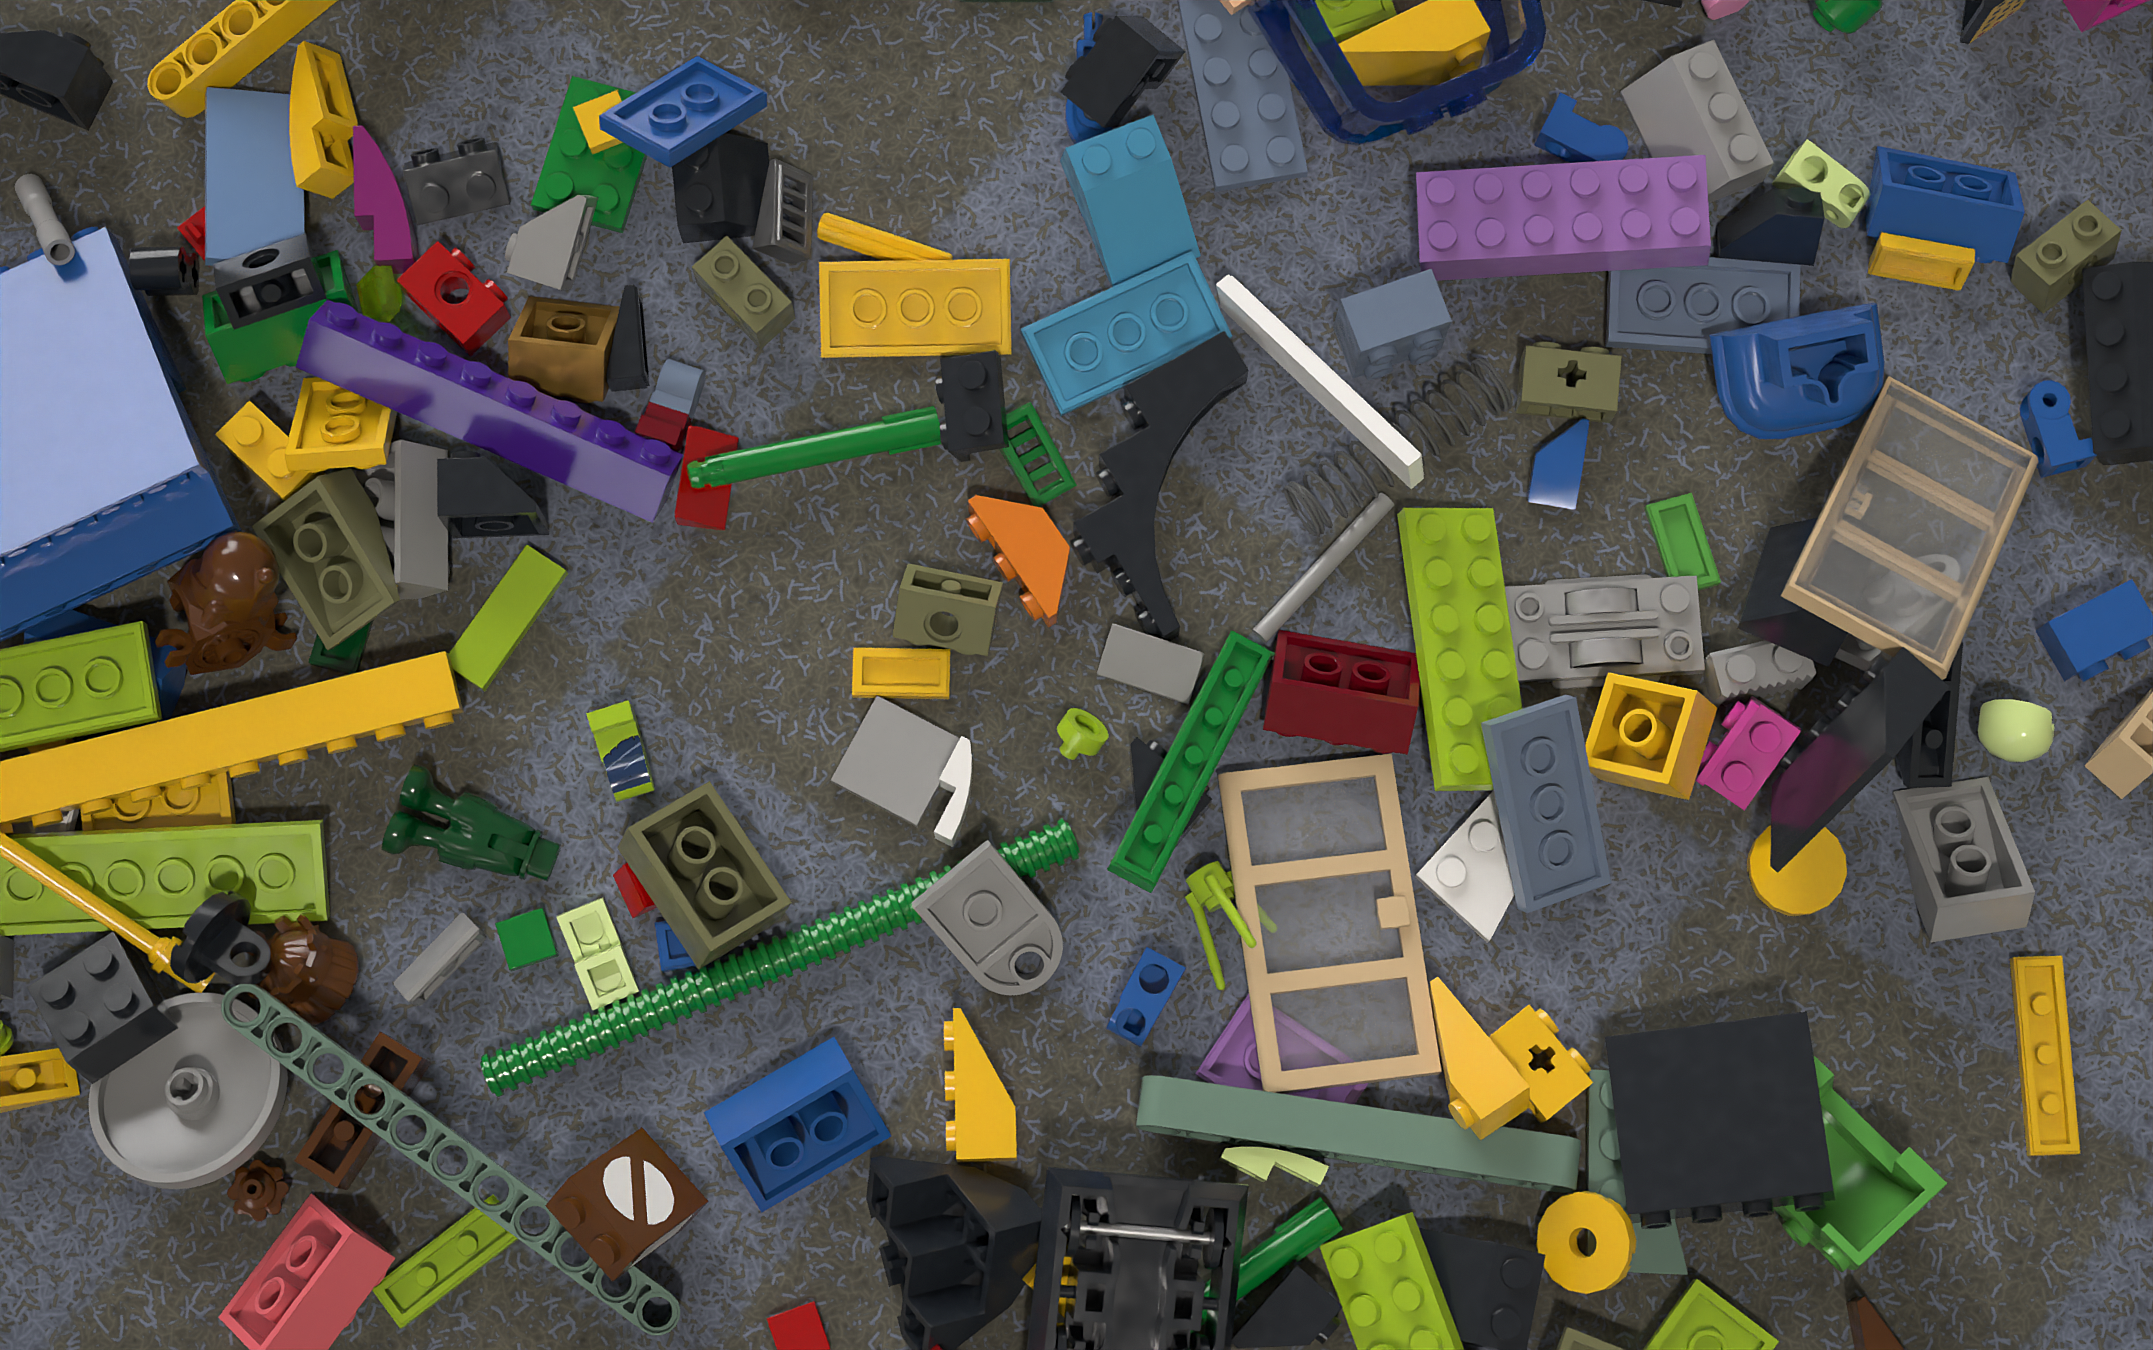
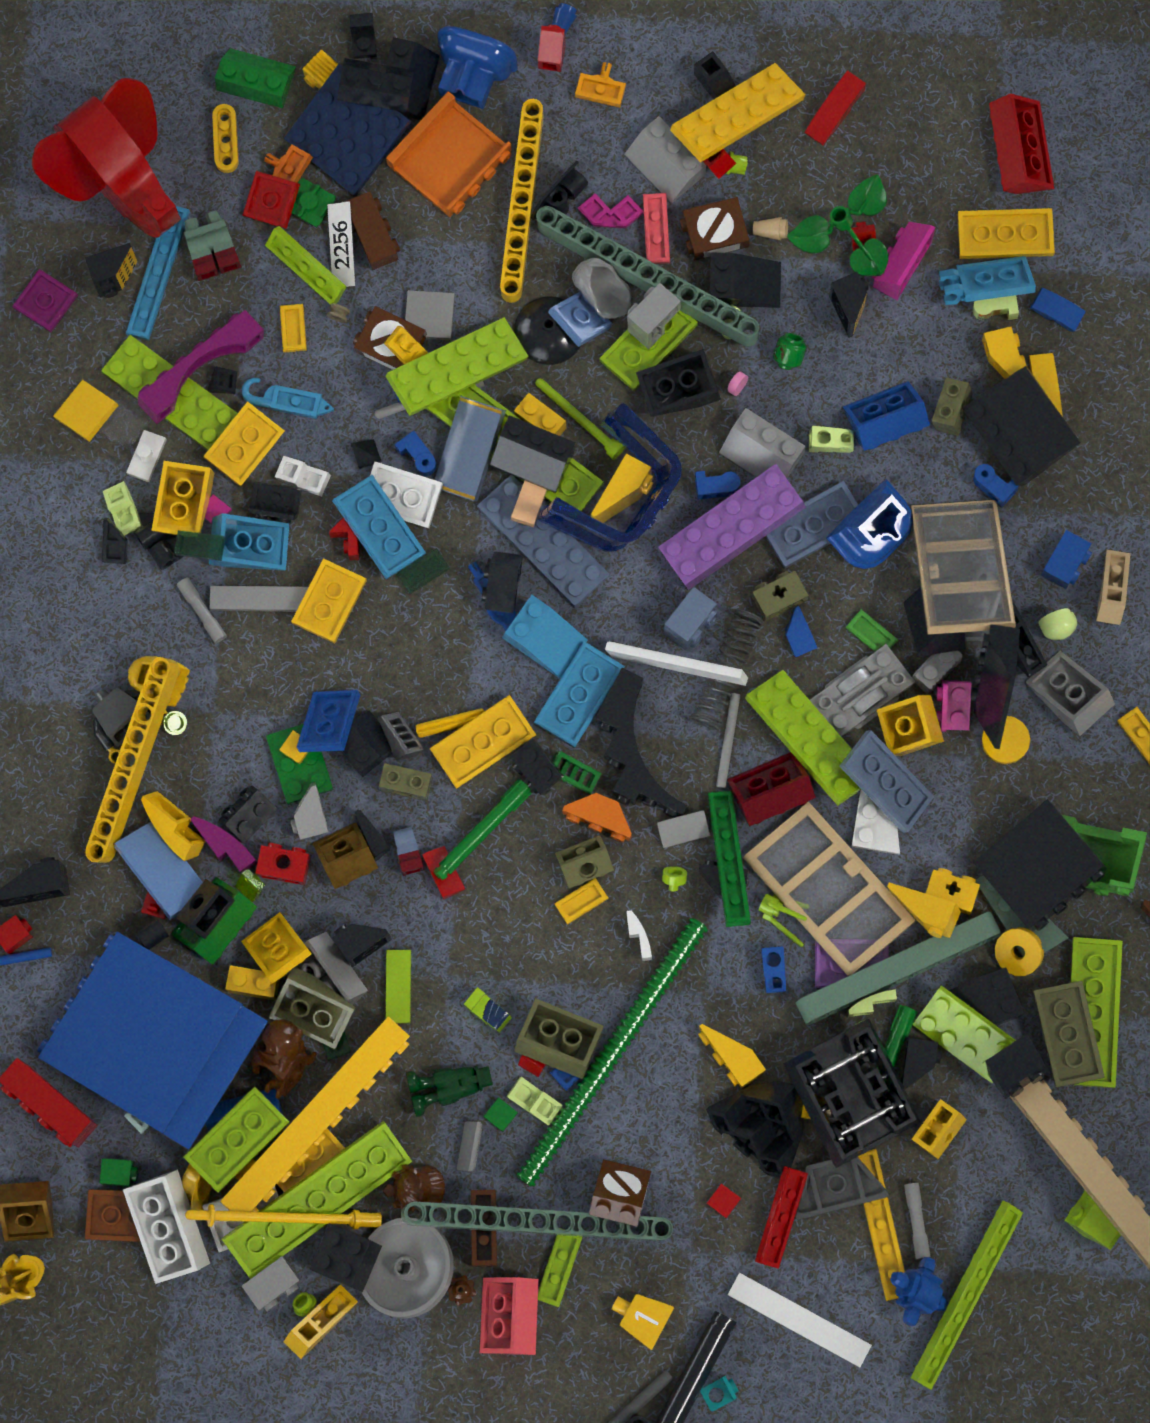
camera: 25 degrees left, 0 degrees up
(50, 232) = (94, 948): light grey piece -> none
(215, 937) = (378, 1195): black tile -> none
(488, 410) = (335, 903): dark purple brick -> none
(797, 1124) = (666, 1115): blue slope -> none
(895, 761) = (604, 939): light grey tile -> none
(991, 920) = (690, 978): light grey plate -> none
(1774, 228) = (823, 473): black slope -> none
(1921, 261) = (893, 447): yellow tile -> none

